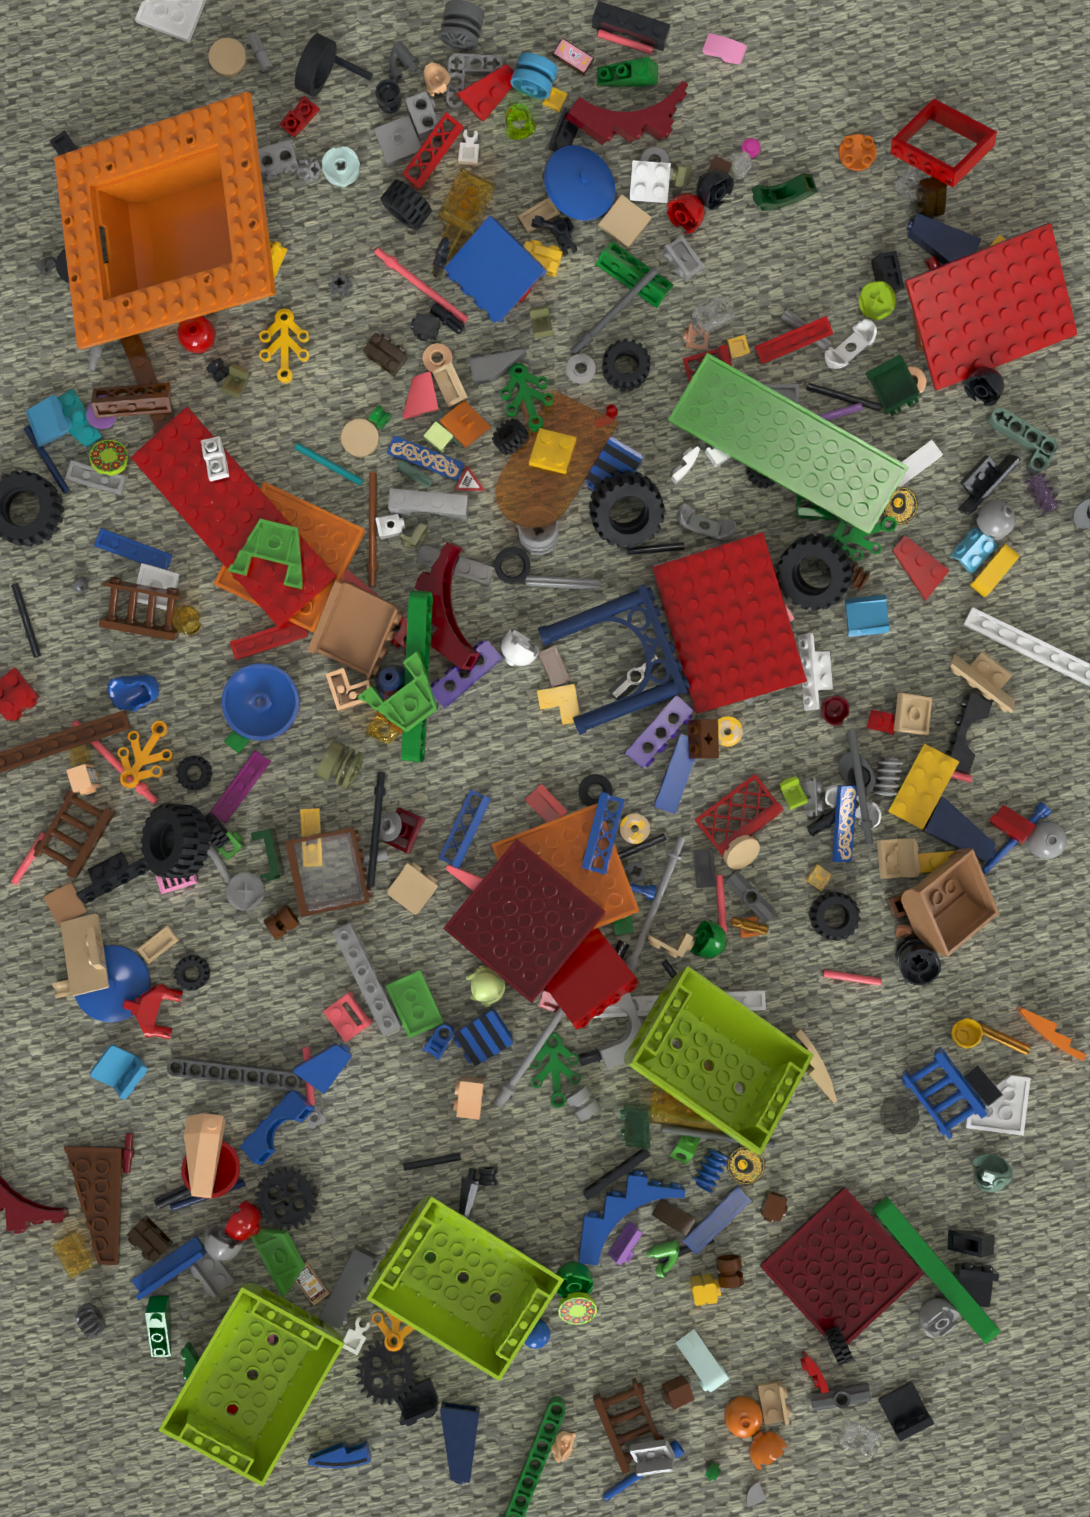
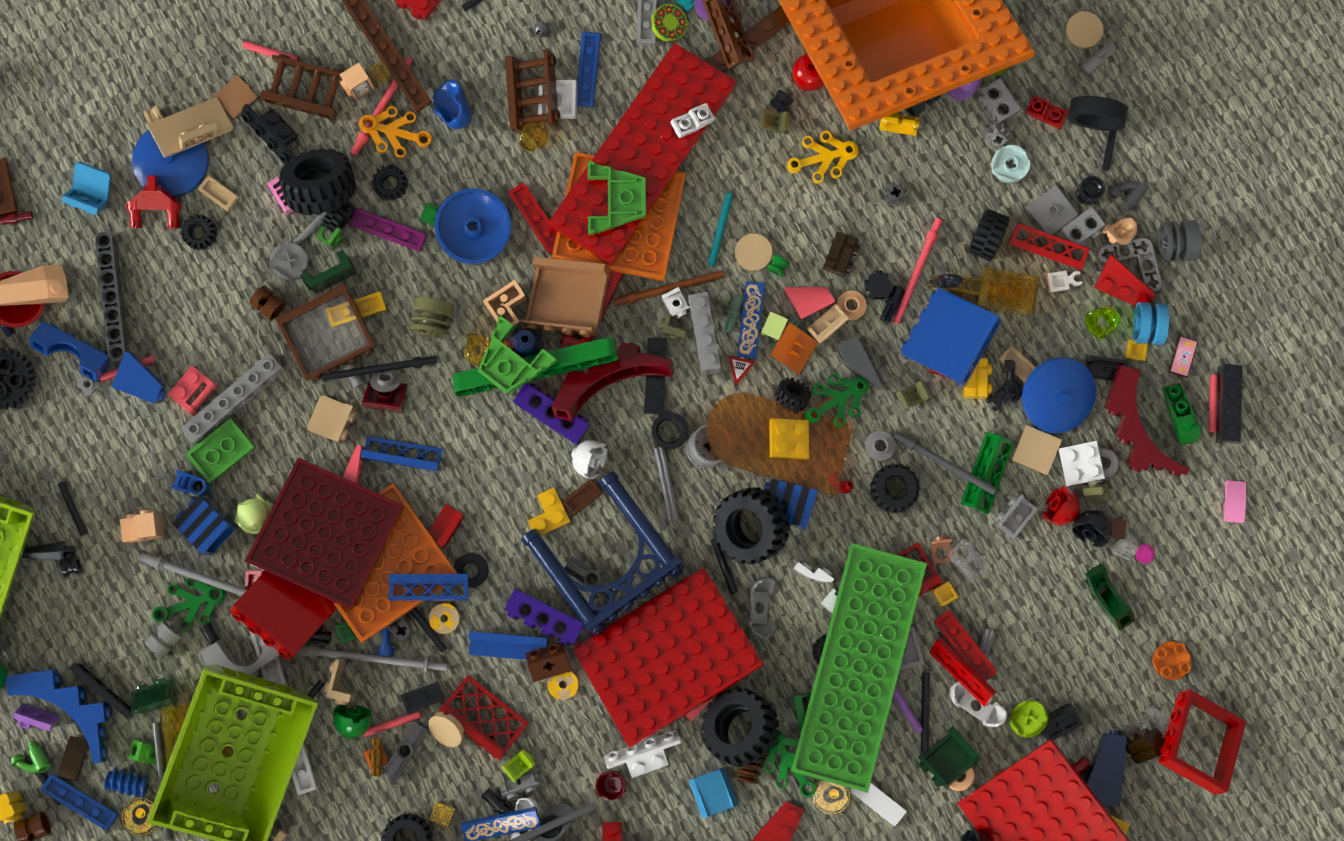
camera: 75 degrees right, 5 degrees down
(818, 348) = (962, 672): none -> red plate

